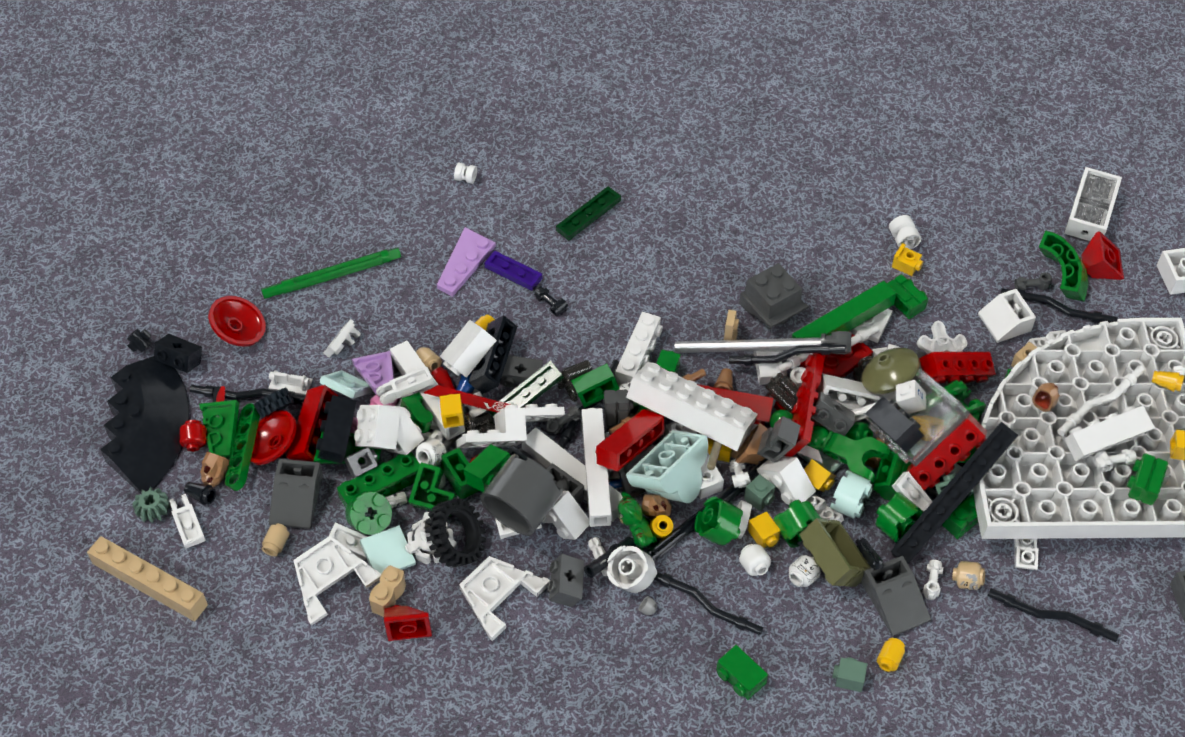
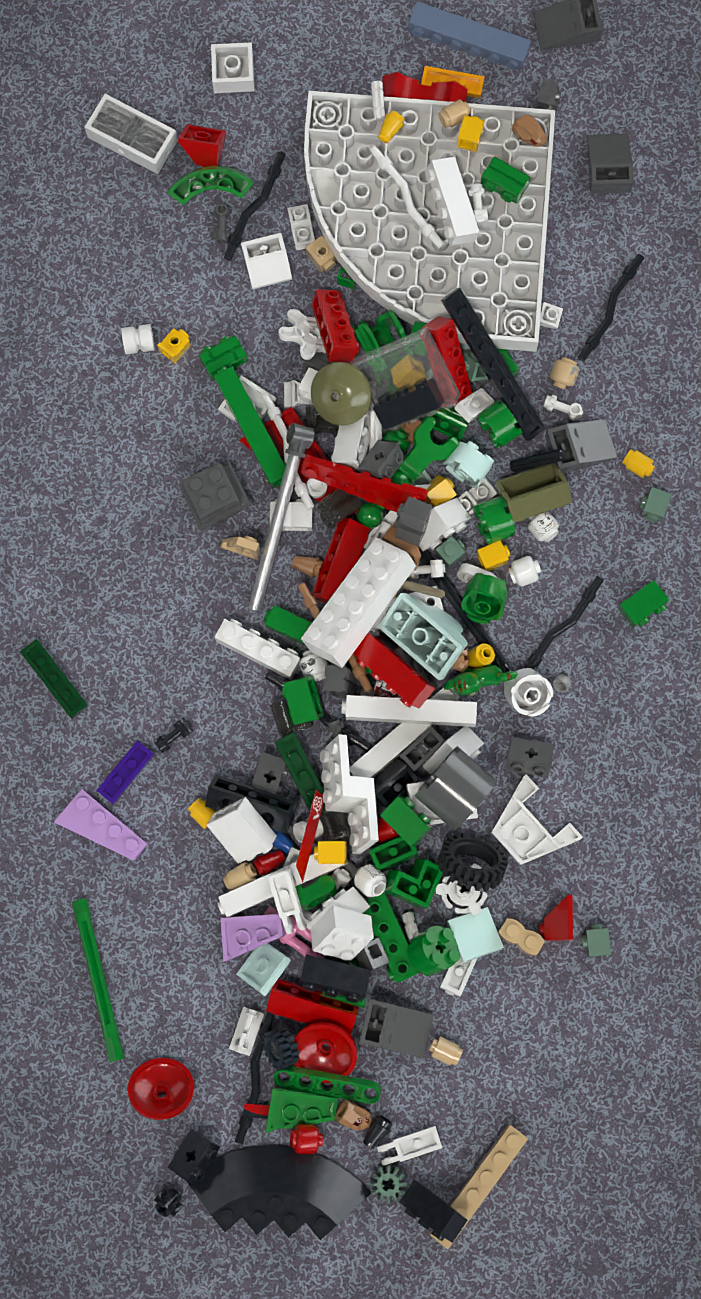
camera: 80 degrees left, 25 degrees up
(121, 534) = (432, 1212): none -> black brick
(324, 567) = (489, 998): white wing -> none
(343, 335) = (195, 973): white plate -> none
(387, 661) = (596, 941): none -> sand green brick
(595, 567) = (514, 717): black pin -> none
(598, 550) = (500, 721): white axle -> none
(824, 349) = (310, 454): black bar -> none
(911, 396) = (383, 380): white brick -> none
(1046, 397) = (401, 249): medium nougat rock -> none

